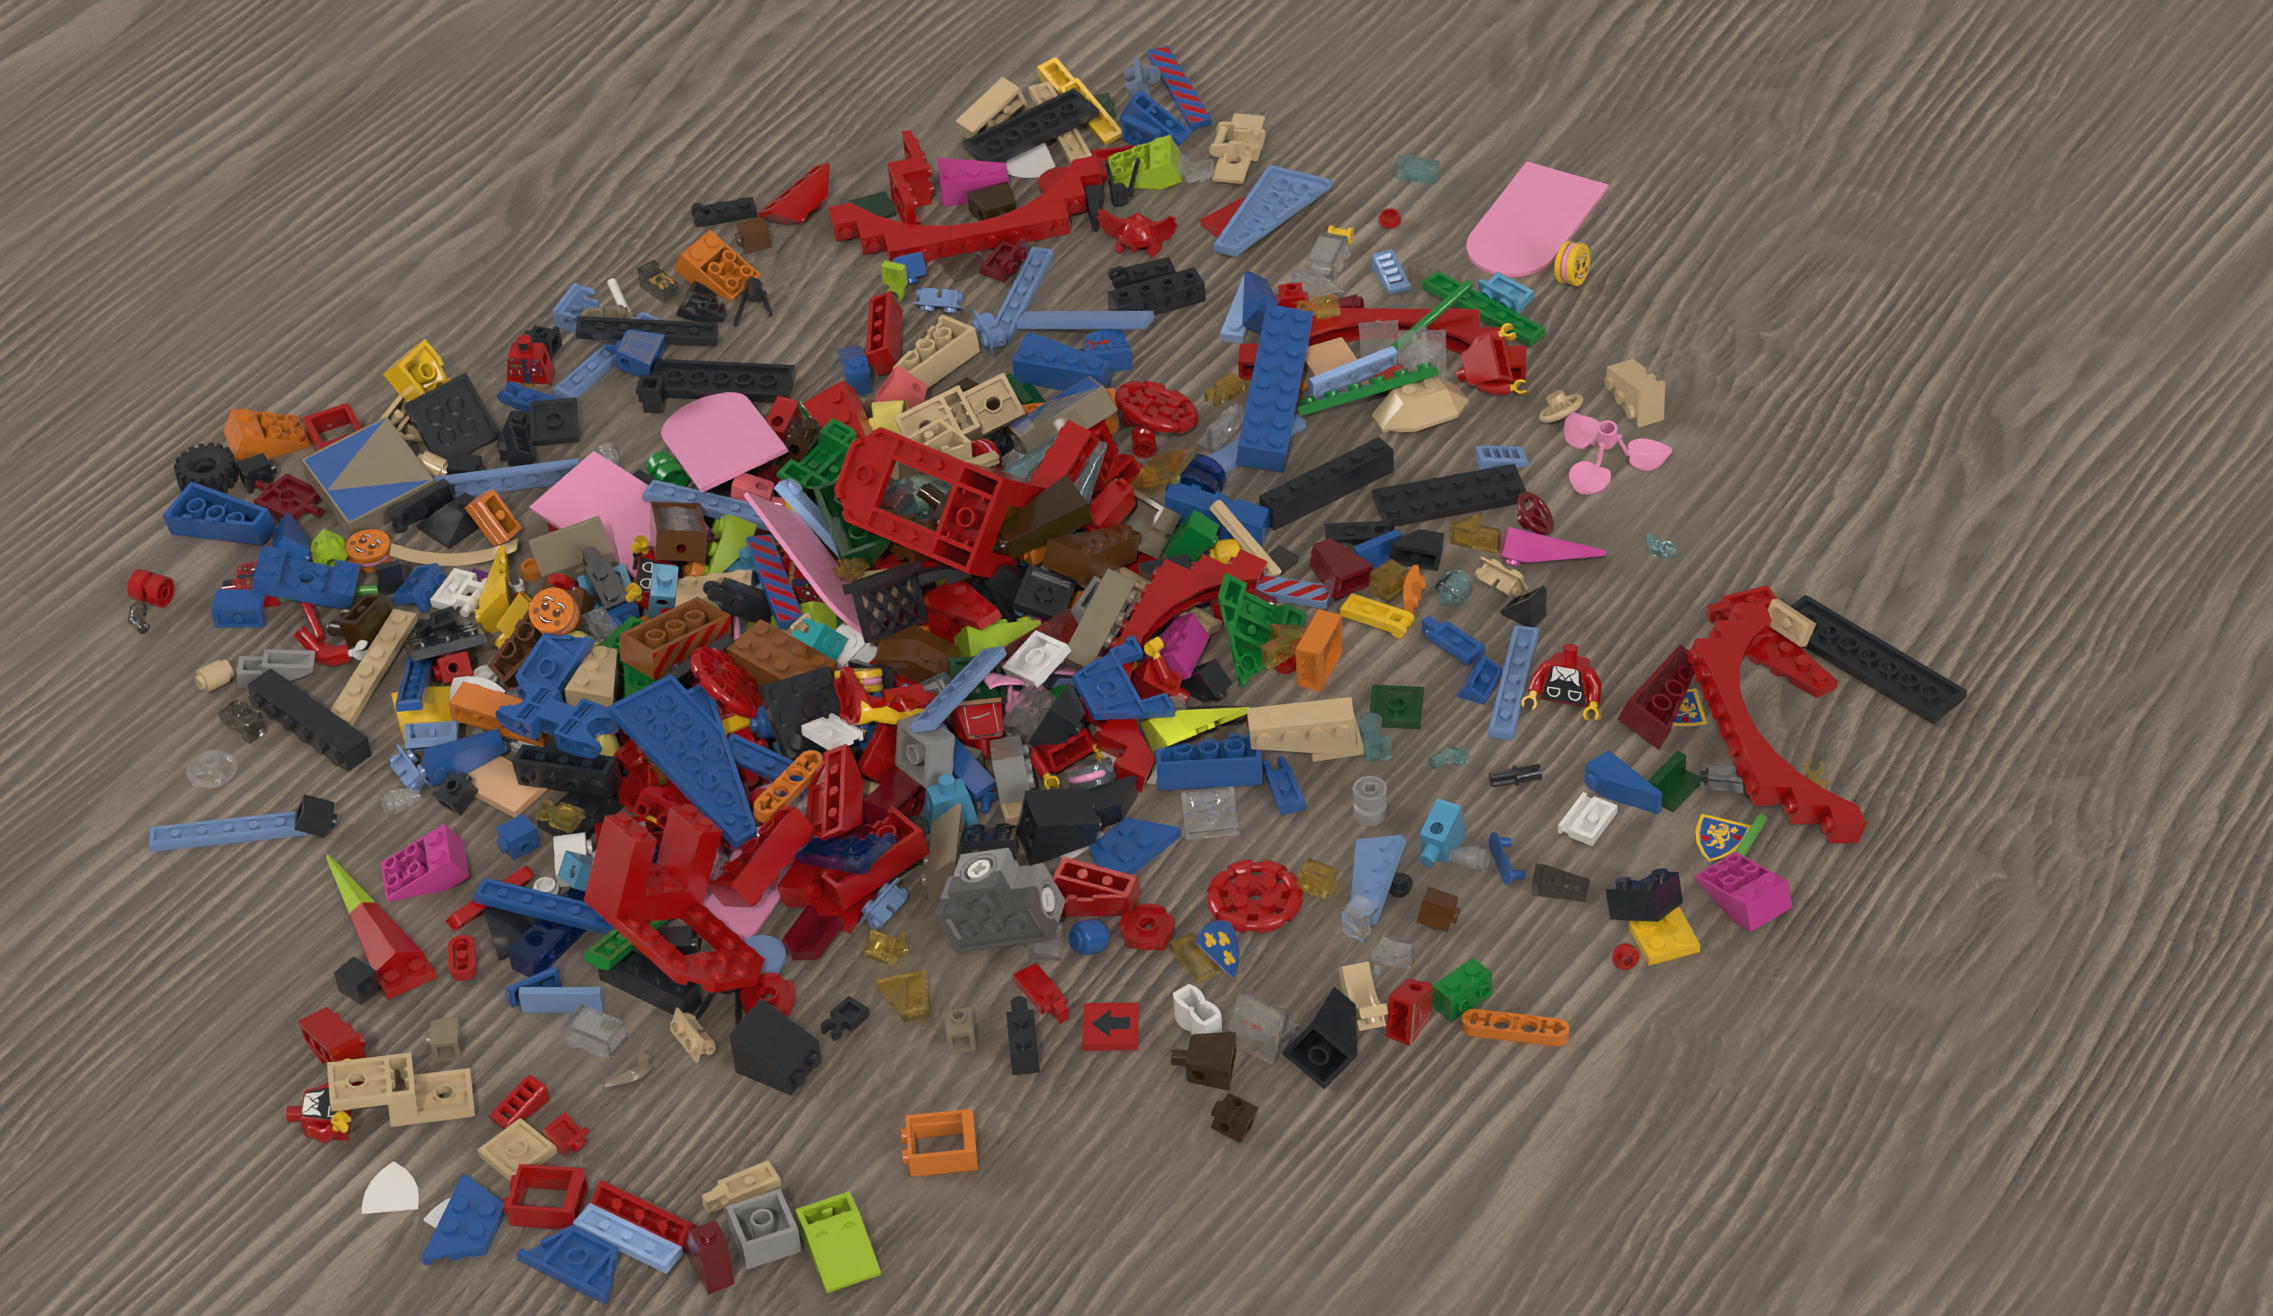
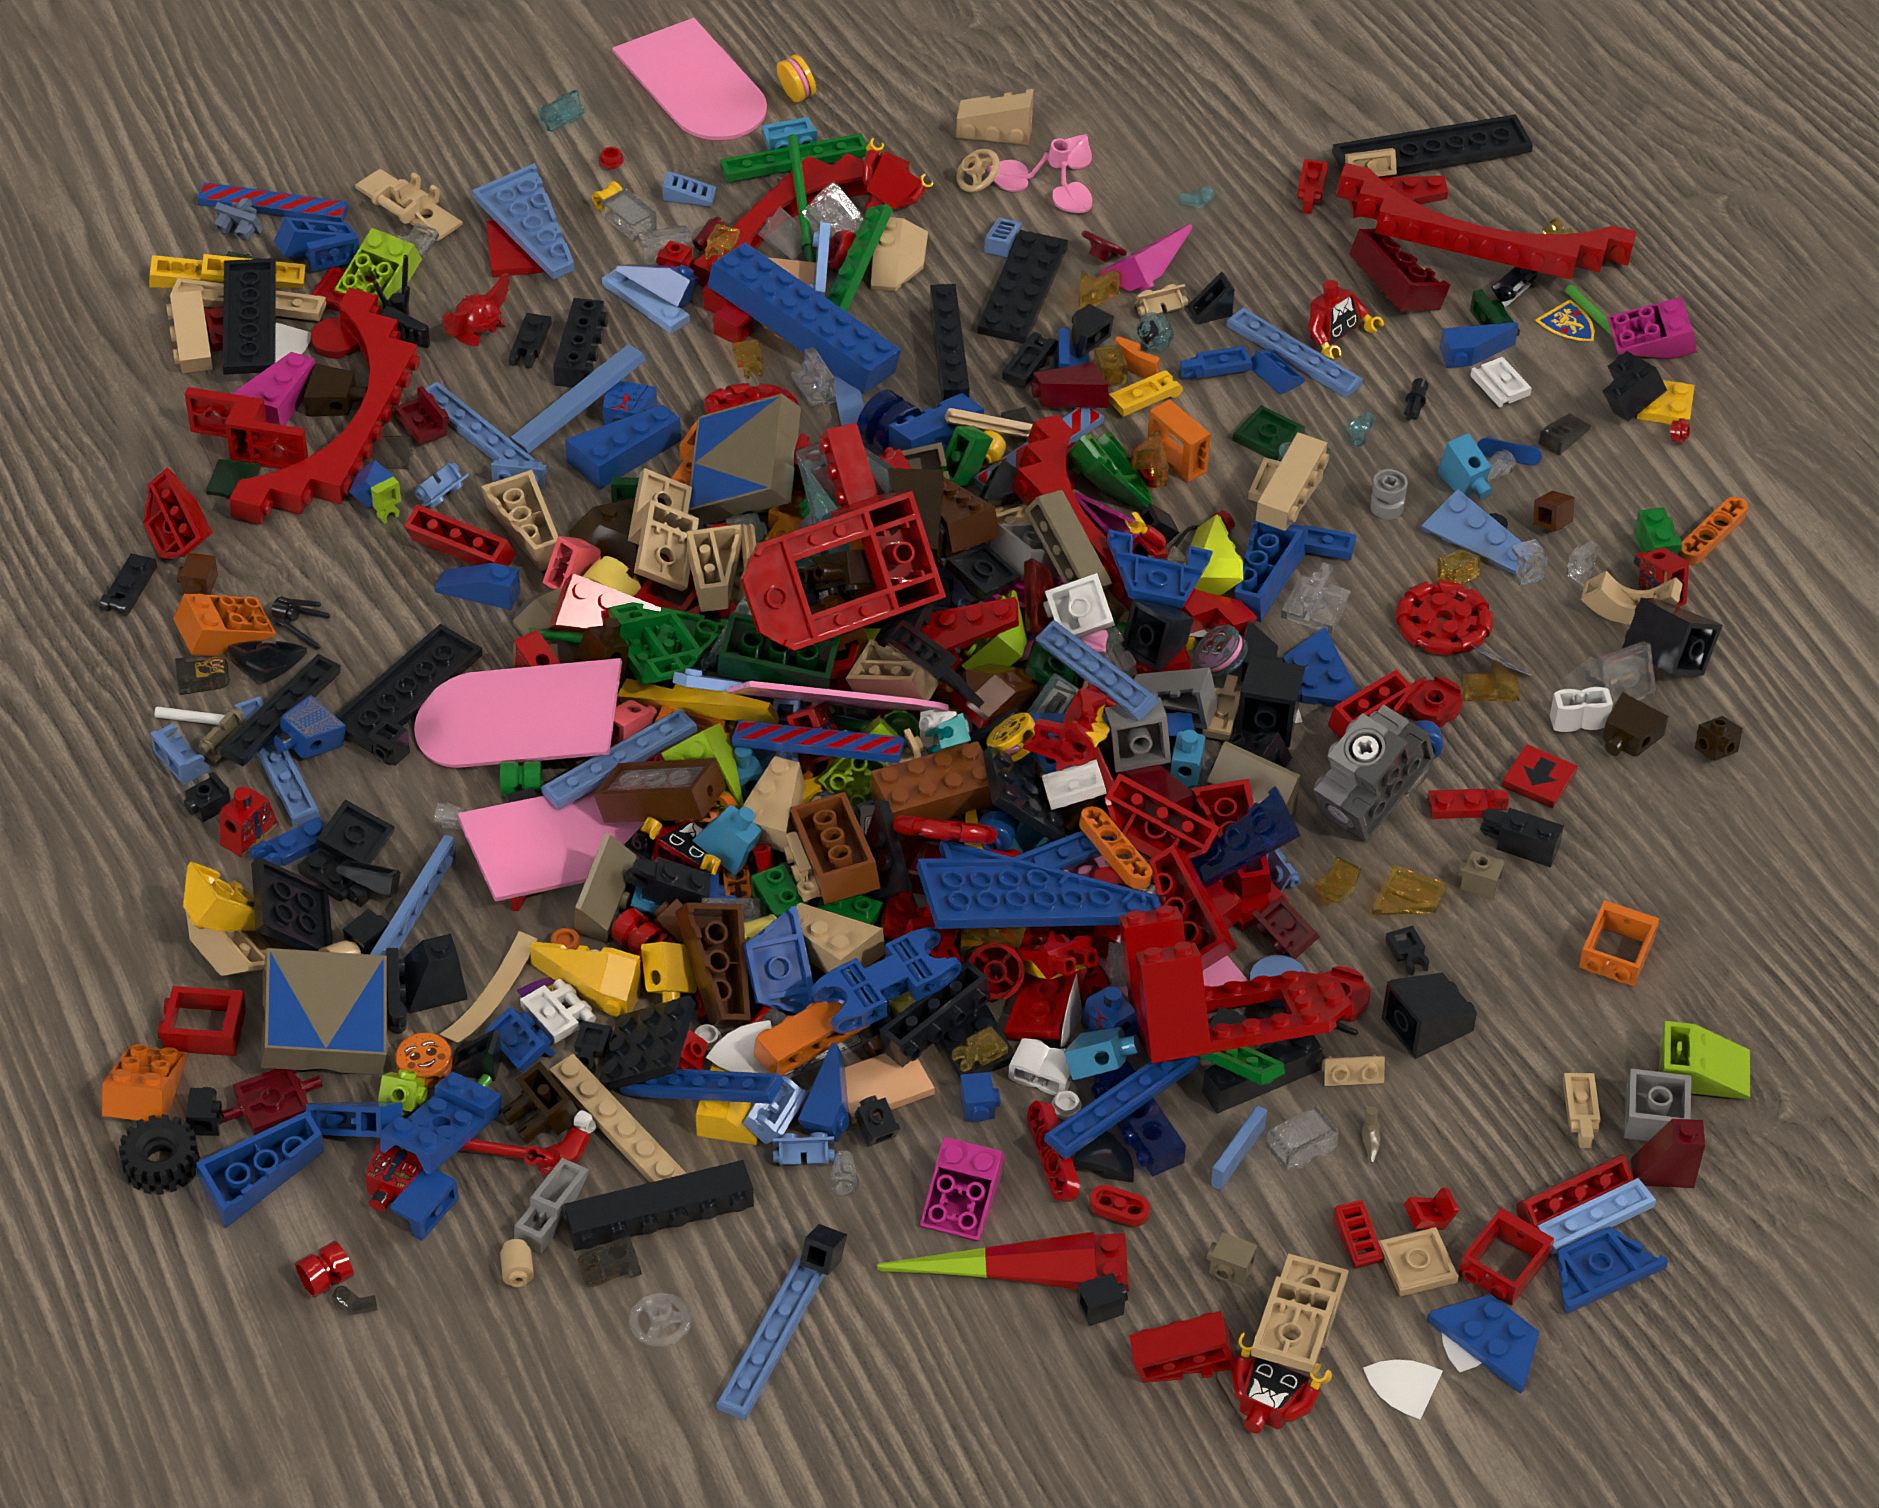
camera: 65 degrees left, 5 degrees up
(493, 517) = (483, 933): orange brick -> none
(547, 978) = (1198, 1165): blue slope -> none
(554, 612) = (733, 919): orange head -> none
(739, 599) = (817, 778): black hinge -> none
(851, 570) = (844, 680): clear yellow plate -> none
(1164, 468) = (874, 417): clear yellow piece -> none

